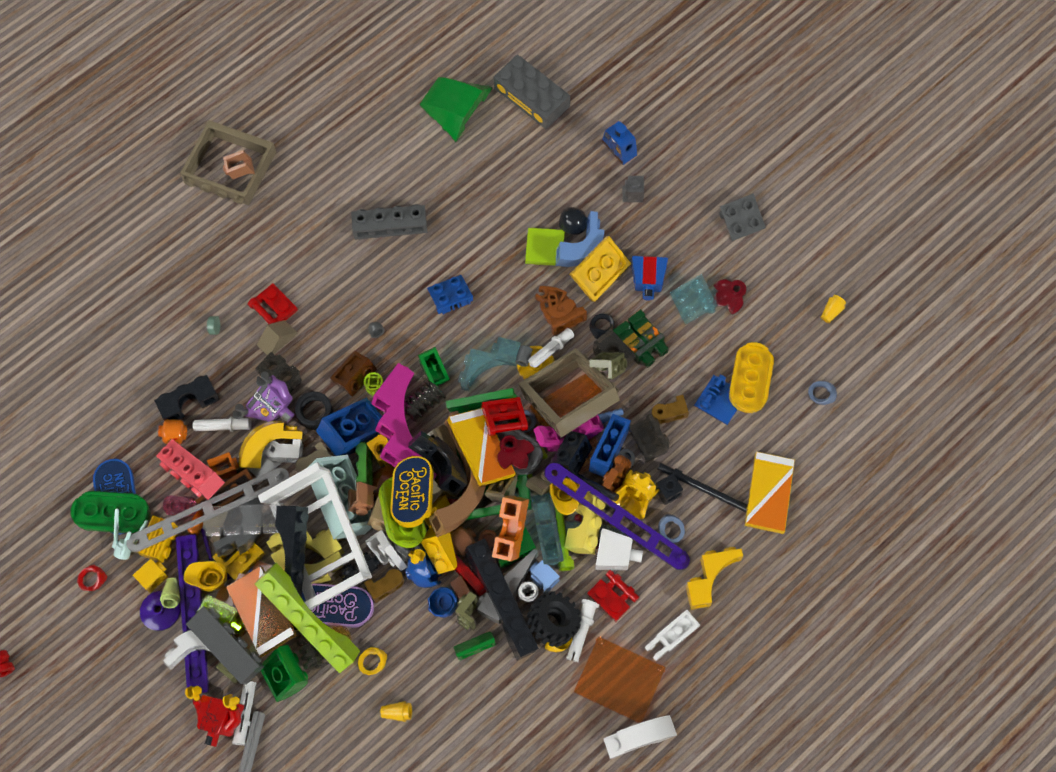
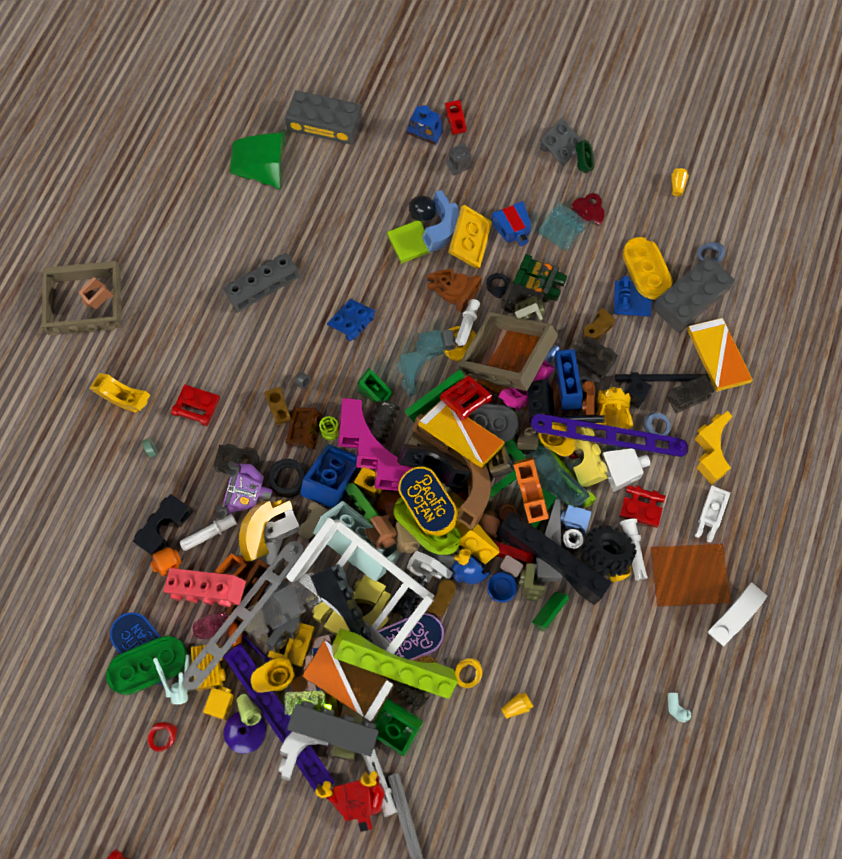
camera: 30 degrees left, 0 degrees up
(213, 264) = (119, 394): none -> yellow arch
(276, 336) = (214, 431): dark tan slope -> none
(341, 341) = (277, 405): none -> pearl gold leg
(515, 455) = (495, 426): dark red plate -> none
(654, 147) = (455, 117): none -> red leg
(718, 515) = (690, 394): none -> clear smoke brick
(756, 241) = (585, 156): none -> dark green plate
(779, 423) = (693, 294): none -> dark grey brick

